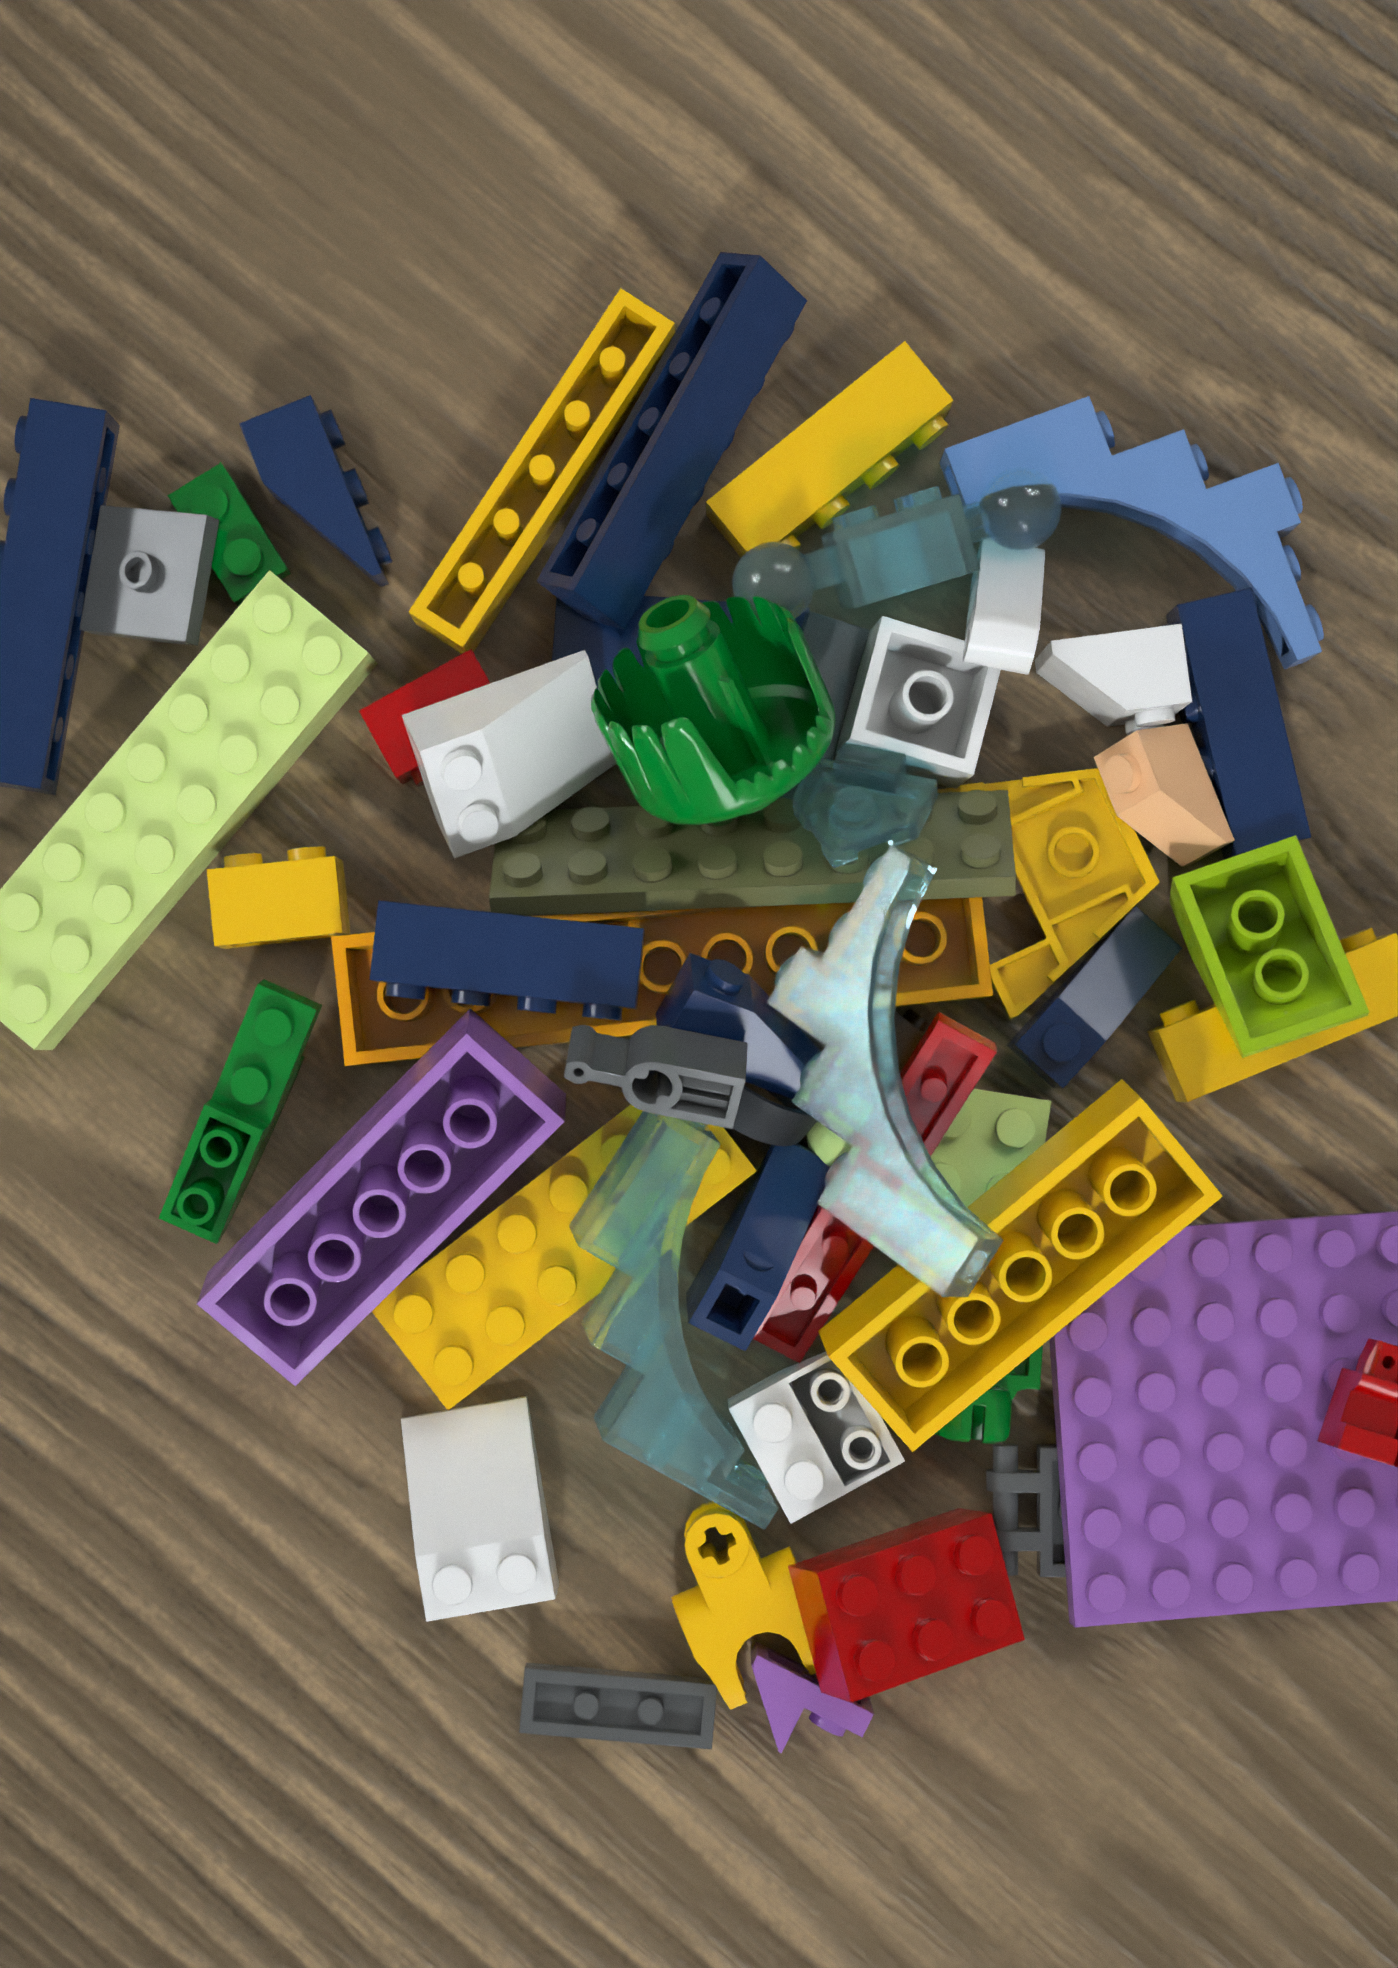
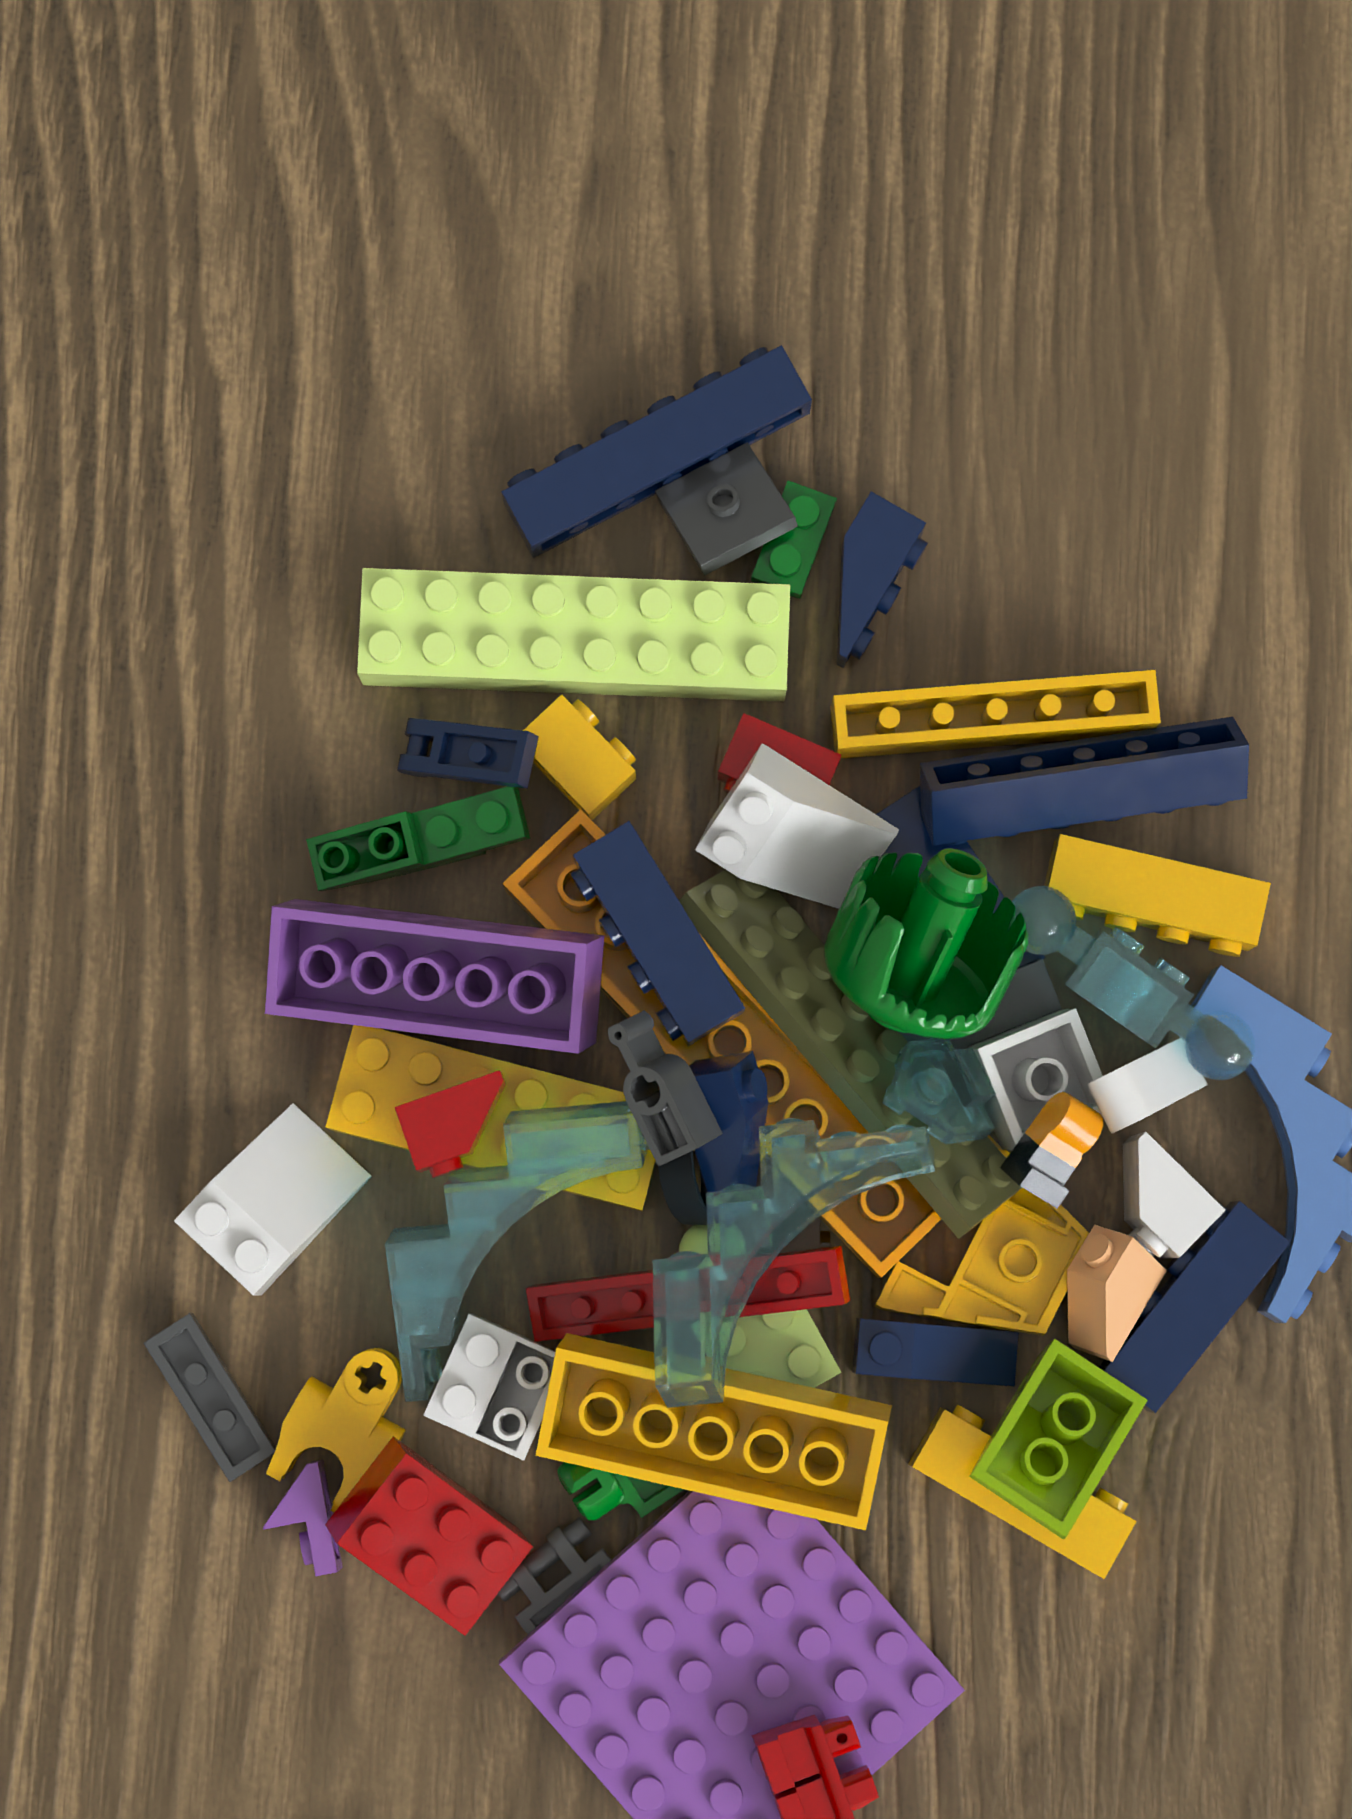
camera: 50 degrees right, 5 degrees down
(195, 1000) = (468, 753): none -> dark blue plate
(535, 1293) = (449, 1123): none -> red slope
(757, 1246) = (591, 1249): dark blue slope -> none
(998, 739) = (1053, 1147): none -> leg

